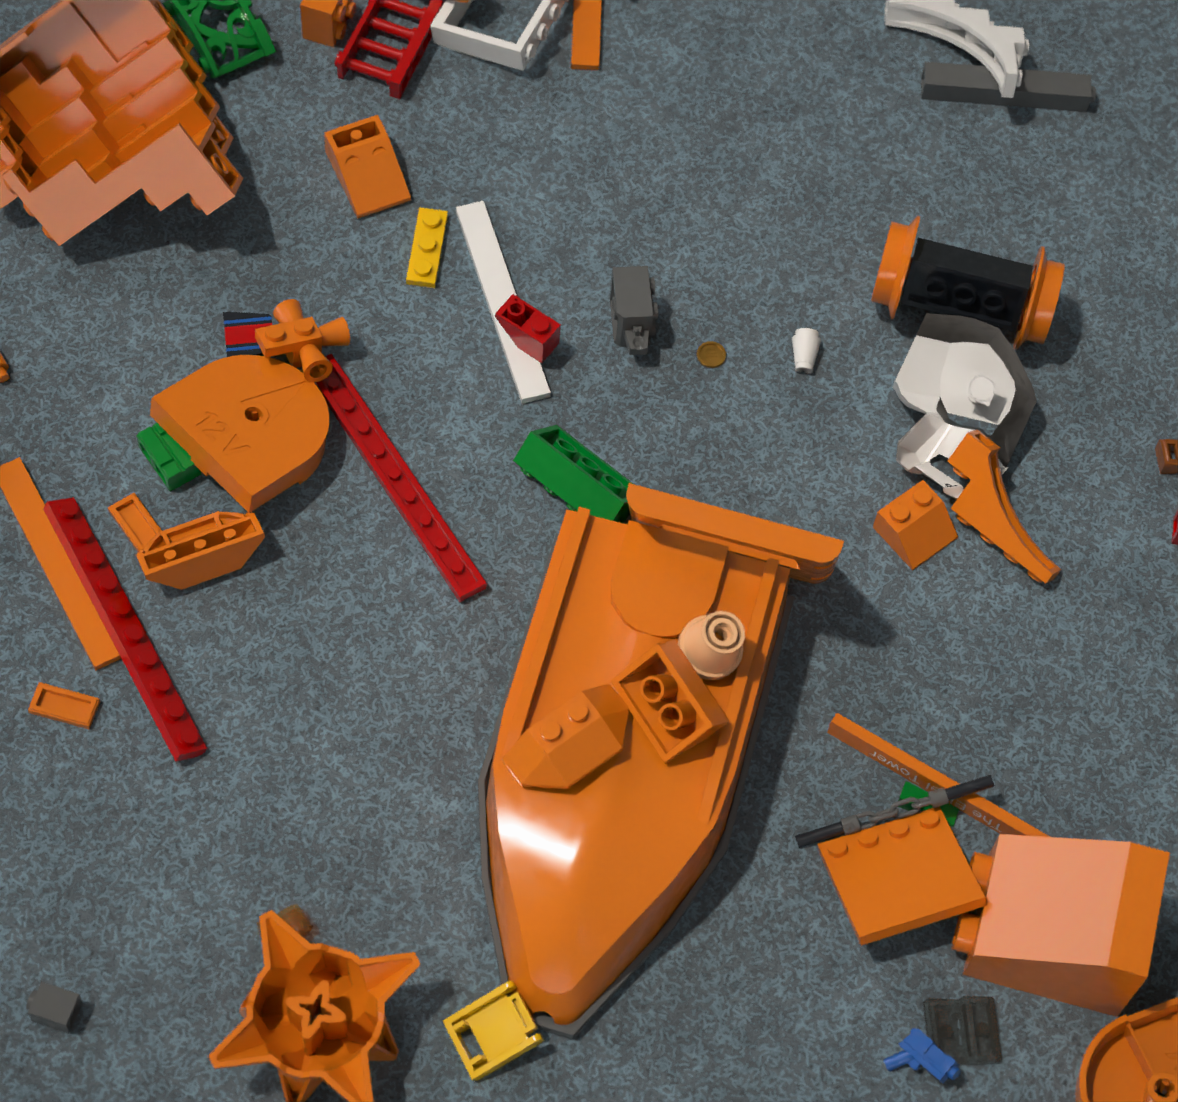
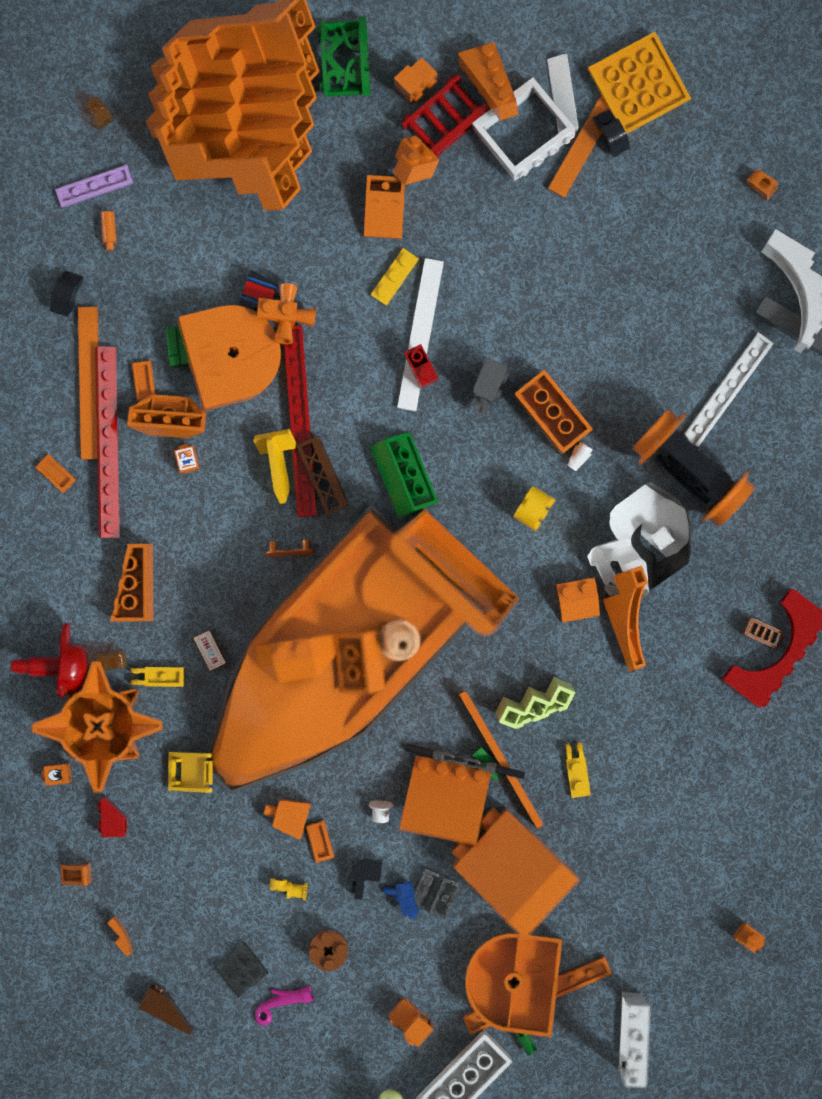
camera: 35 degrees right, 25 degrees up
(218, 946) = (69, 668): none -> red piece
(256, 594) = (186, 458): none -> brick
(269, 804) = (135, 589): none -> orange wedge
(369, 917) = (159, 676): none -> yellow hinge
(373, 515) = (274, 445): none -> yellow piece
(379, 92) = (414, 161): none -> orange brick
(427, 844) = (209, 650): none -> white tile
(464, 657) = (276, 553): none -> orange piece
(471, 520) = (329, 471): none -> reddish brown fence
(681, 1023) = (289, 816): none -> orange torso
(711, 354) = (524, 429): pearl gold piece -> none
(738, 309) = (552, 412): none -> orange brick
(747, 1041) = (319, 841): none -> orange tile
(786, 433) = (534, 508): none -> yellow brick
(814, 948) = (380, 810): none -> white piece
(840, 1048) = (365, 870): none -> black brick
(945, 685) = (535, 704): none -> yellowish green brick
(948, 178) = (728, 389): none -> white tile
(1059, 755) = (577, 772): none -> yellow hinge

